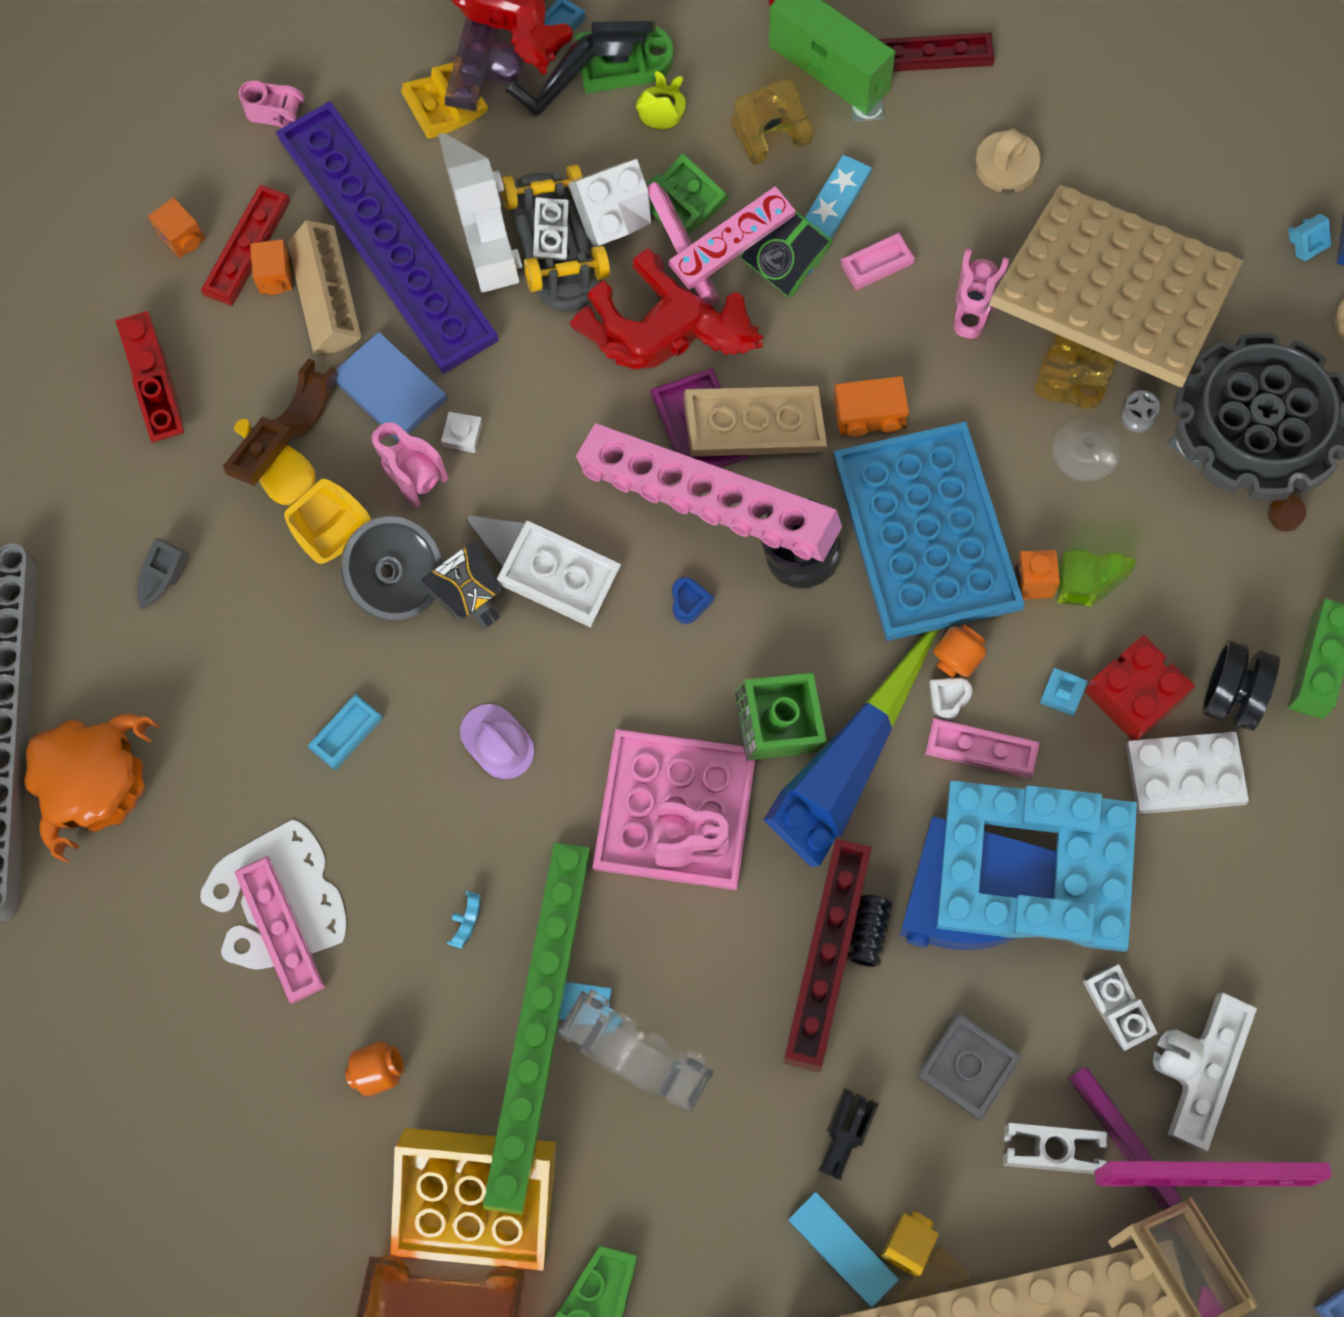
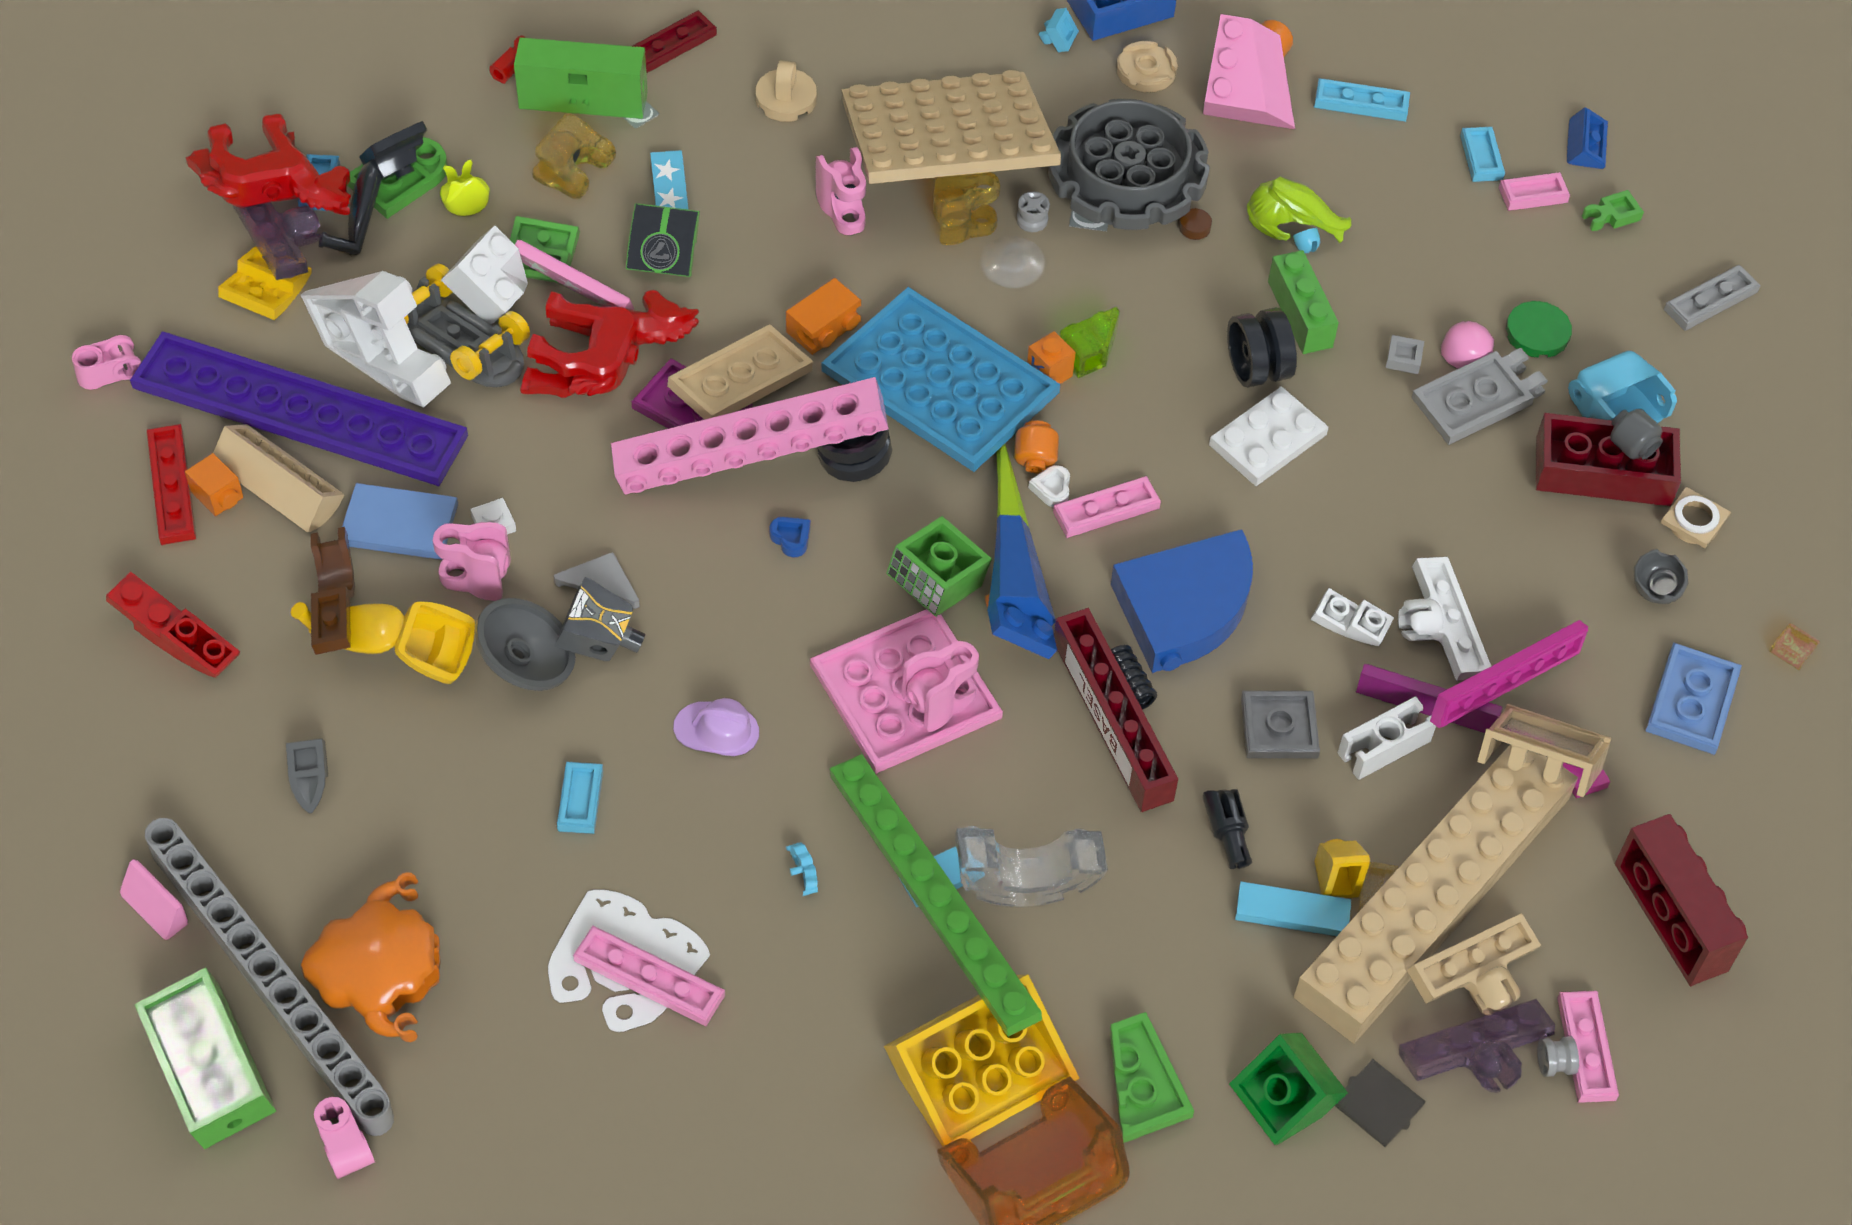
camera: 45 degrees left, 15 degrees down
(176, 228) = (96, 501): orange brick -> none
(374, 1068) = (821, 1020): orange head -> none
(550, 229) = (449, 323): white slope -> none
(558, 573) = (670, 571): white plate -> none
(732, 237) = (617, 248): bright pink tile -> none
(877, 261) = (740, 215): bright pink tile -> none
(1063, 691) = (1134, 432): medium azure tile -> none
(1090, 865) = (1253, 521): medium azure piece -> none
(1139, 689) = (1189, 395): red piece -> none

